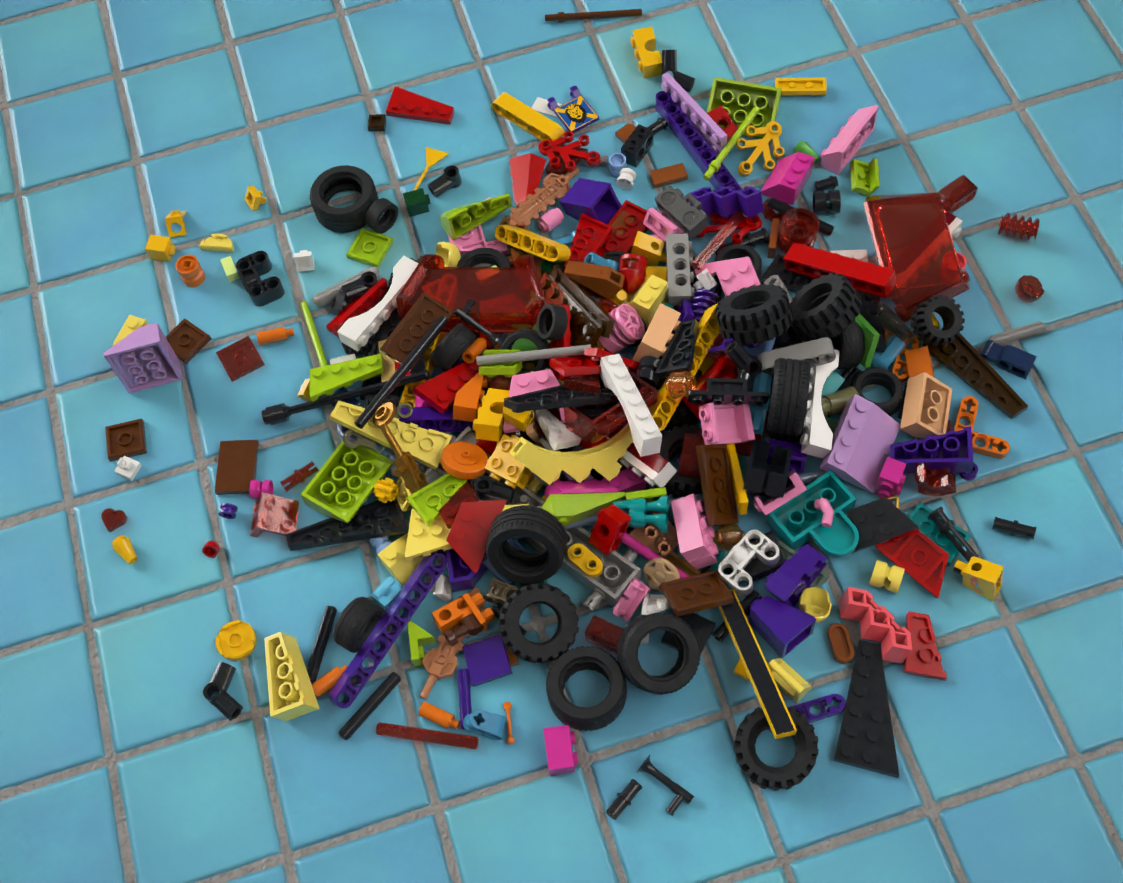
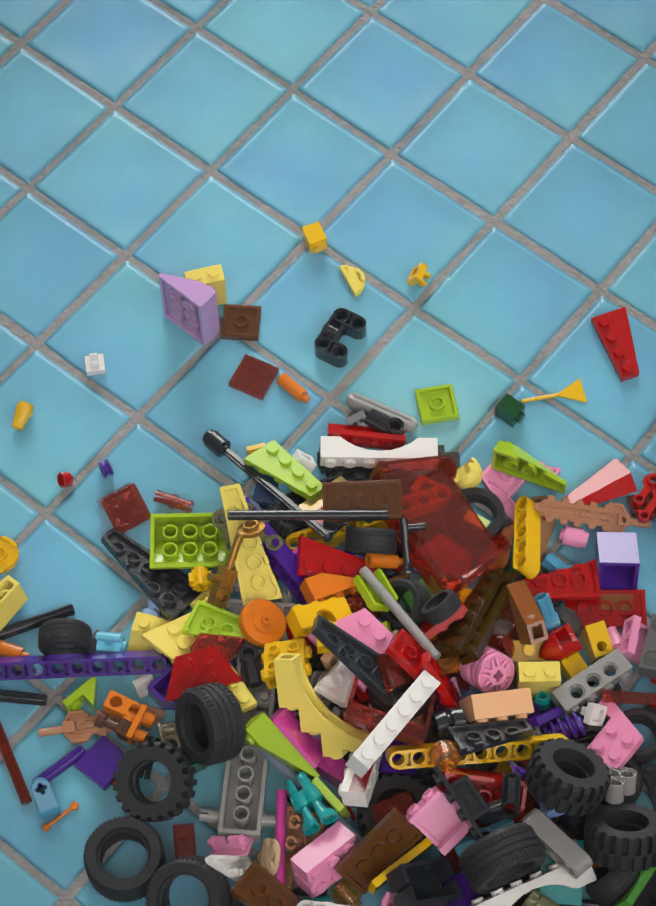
camera: 50 degrees right, 0 degrees up
(113, 519) = (43, 386): clear red tile -> none
(126, 439) = (119, 344): reddish brown tile -> none
(176, 216) = (351, 227): yellow bracket -> none
(190, 271) = (307, 277): orange wheel -> none
(230, 269) = (336, 302): yellowish green piece -> none
(236, 466) = (151, 446): reddish brown tile -> none
(257, 487) = (141, 479): dark pink wheel -> none
(304, 261) = (382, 359): white tile -> none
(313, 333) = (314, 422): lime bar -> none
(338, 180) = (474, 326): black tyre -> none
(375, 212) = (471, 391): black tyre -> none
(377, 122) = (575, 319): dark brown tile -> none
(438, 716) = (30, 755): orange cylinder -> none
(450, 179) = (549, 420): black piece -> none
(559, 750) = (59, 872): dark pink brick -> none
(584, 559) = (236, 782): yellow plate -> none
(609, 529) = (273, 784): red brick -> none

